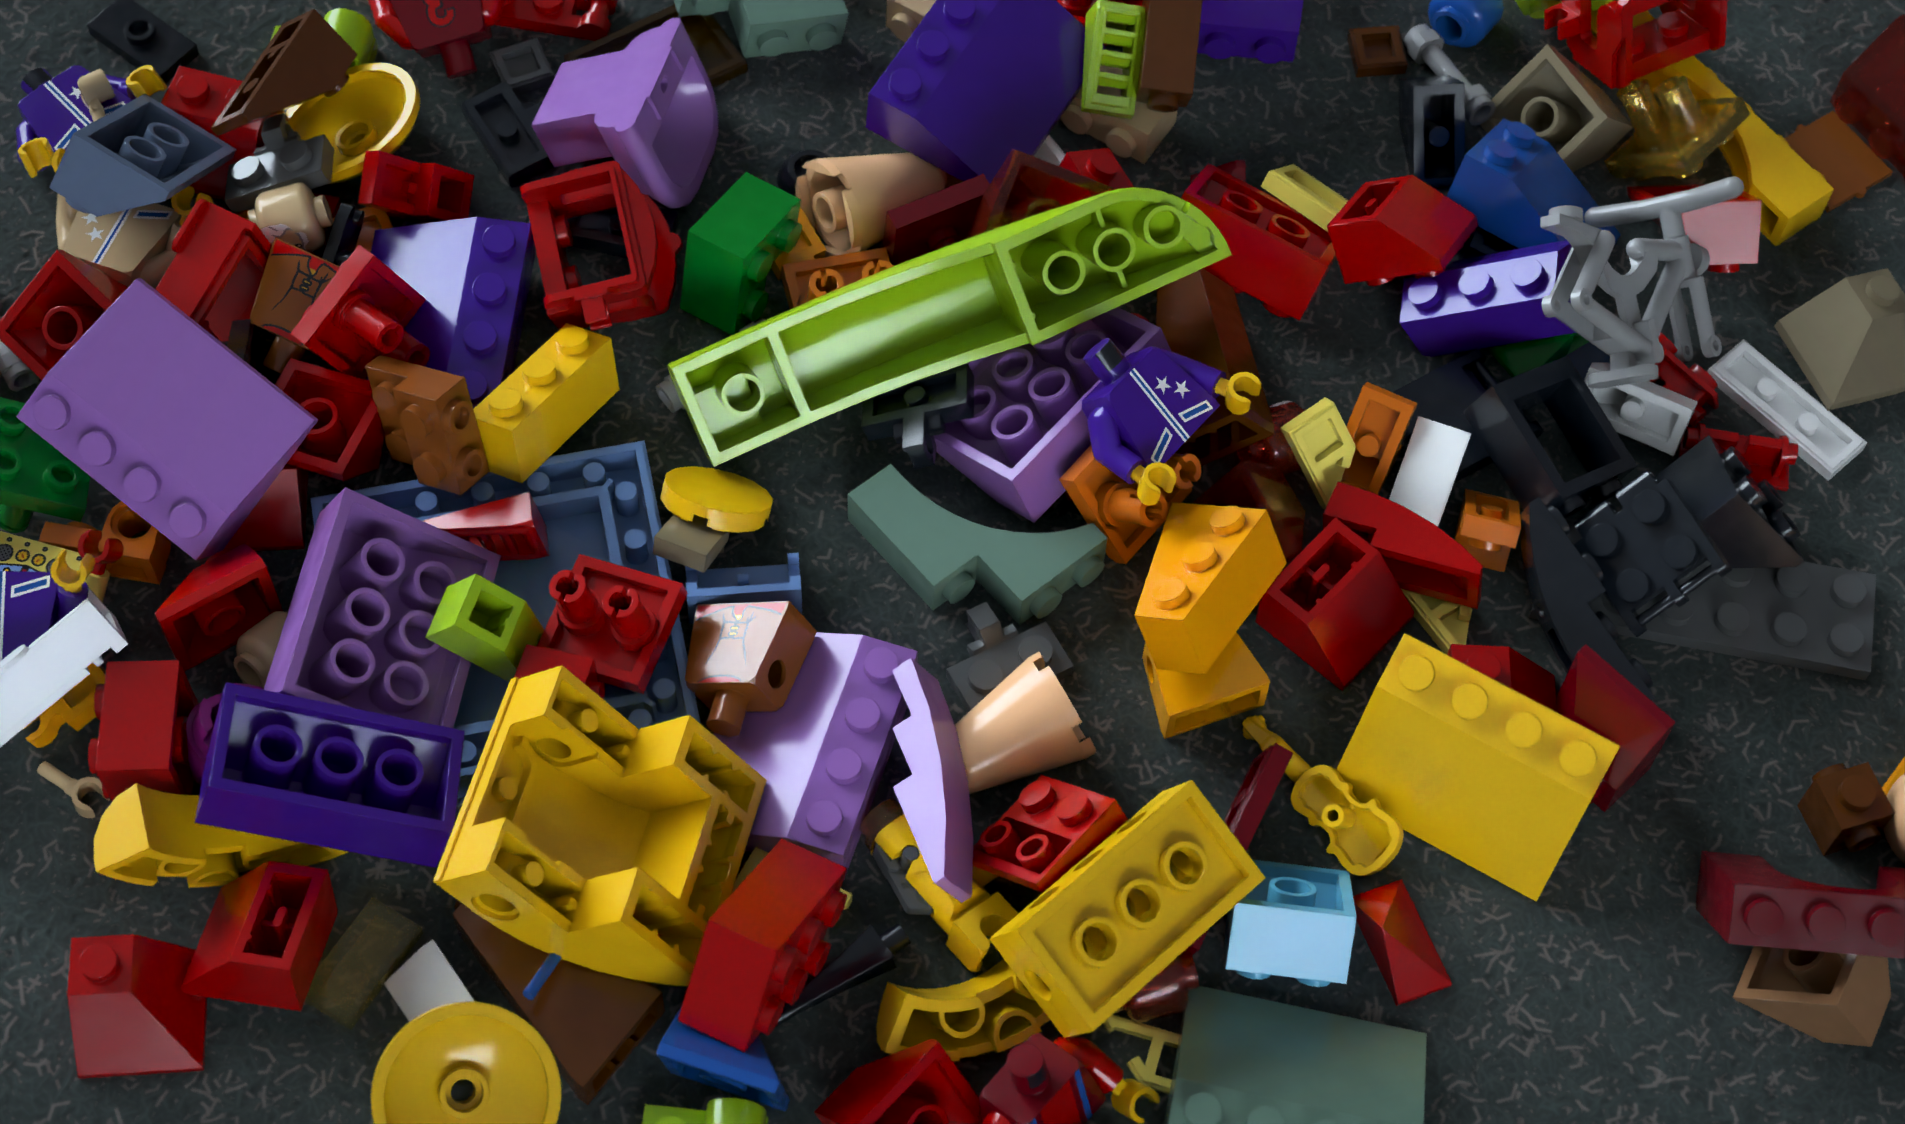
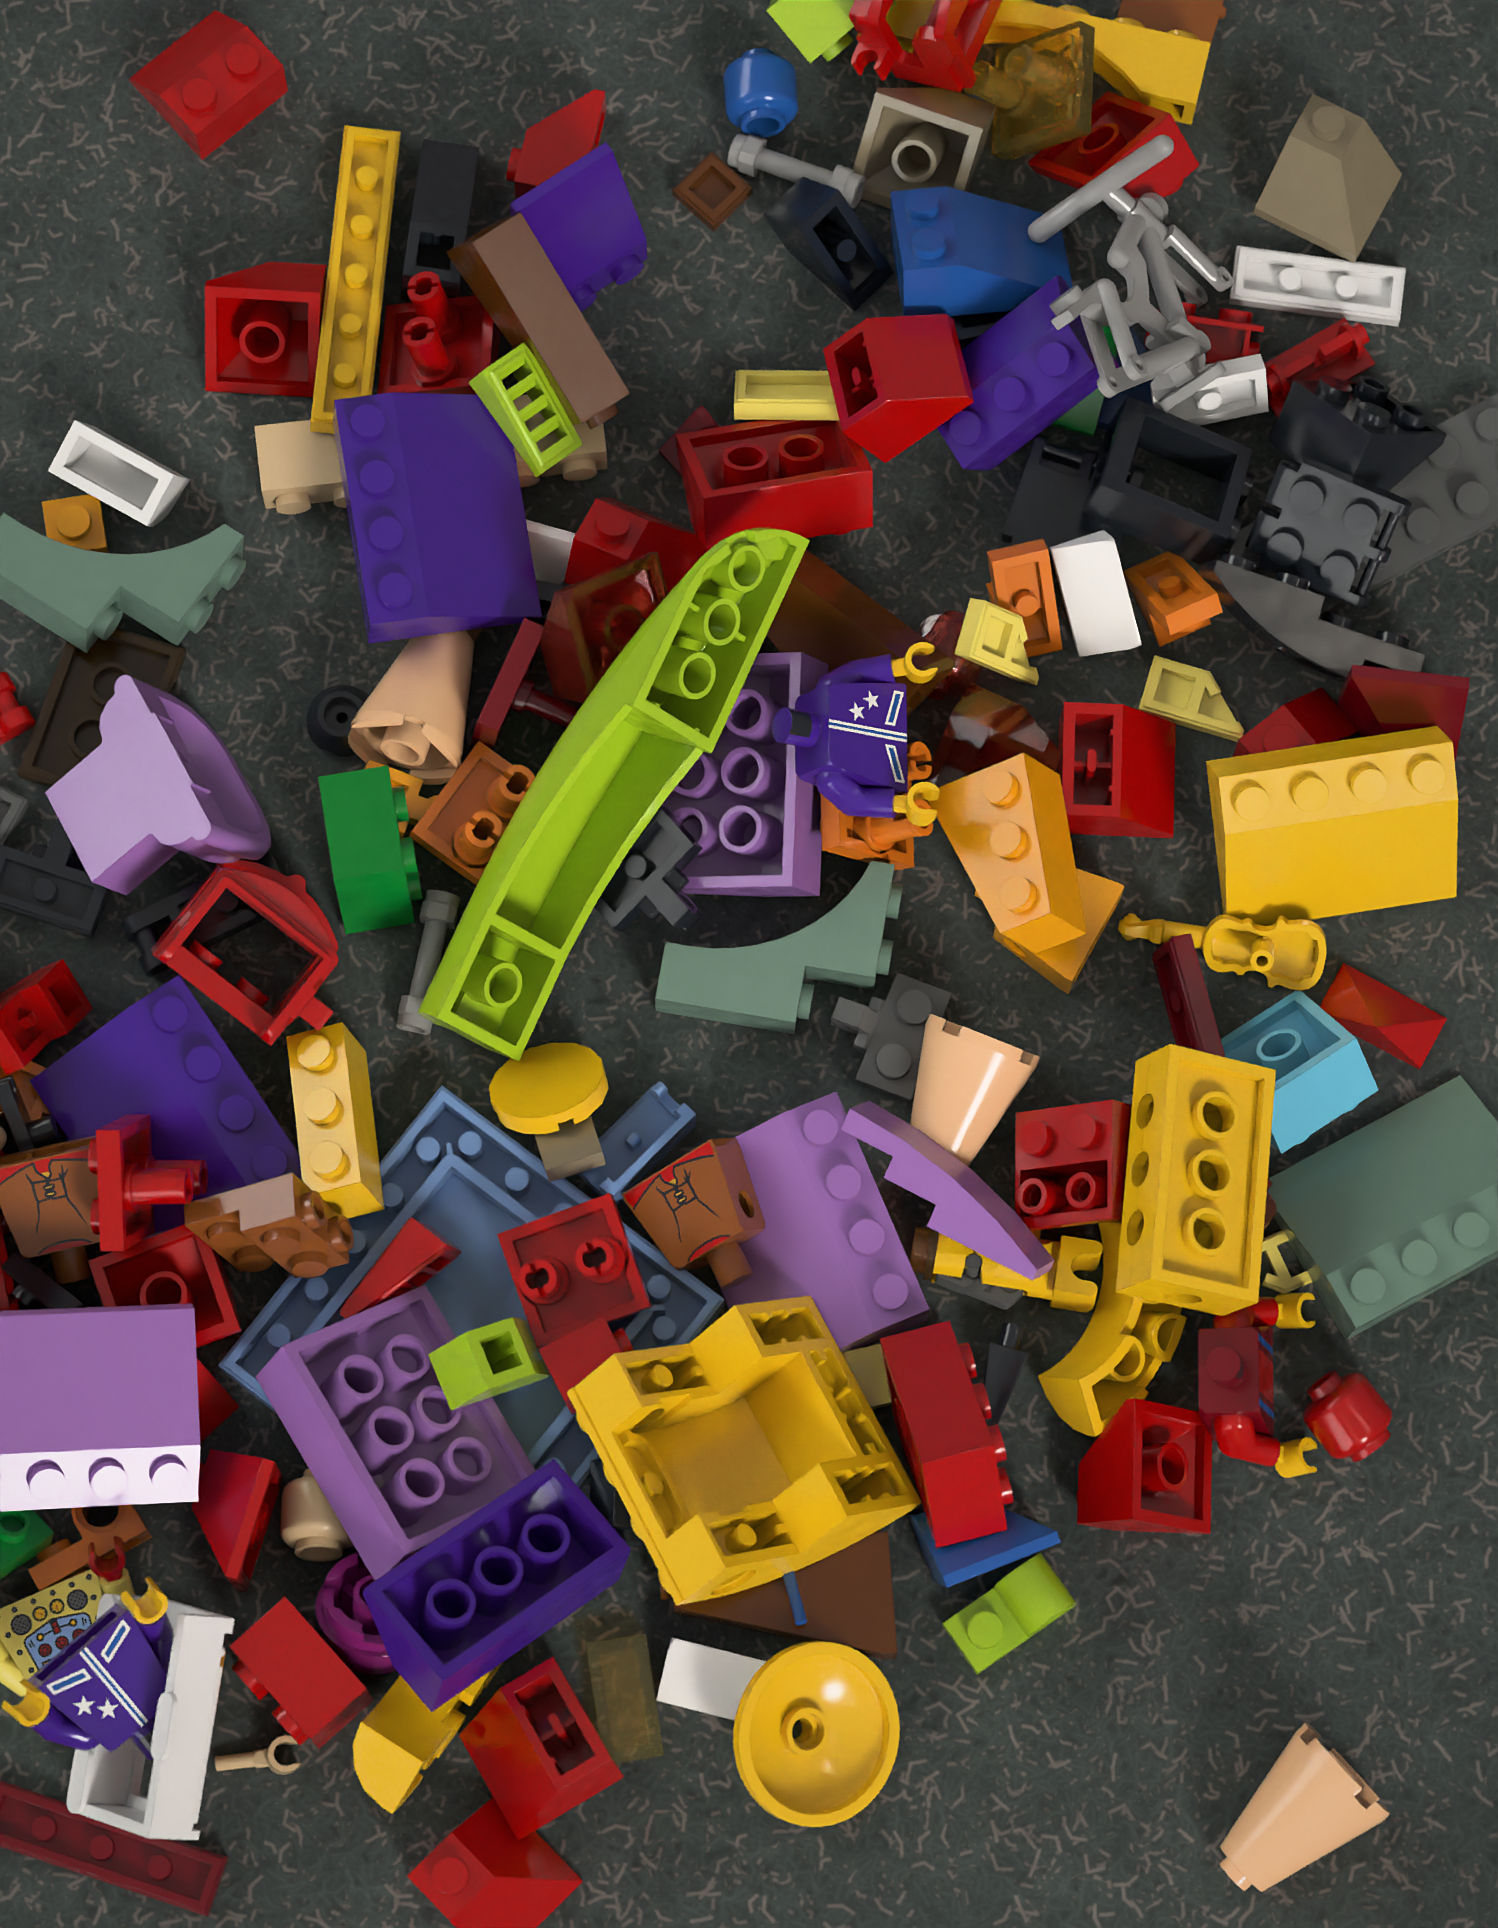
camera: 40 degrees left, 15 degrees up
(1413, 548) = (1126, 674): red slope -> none

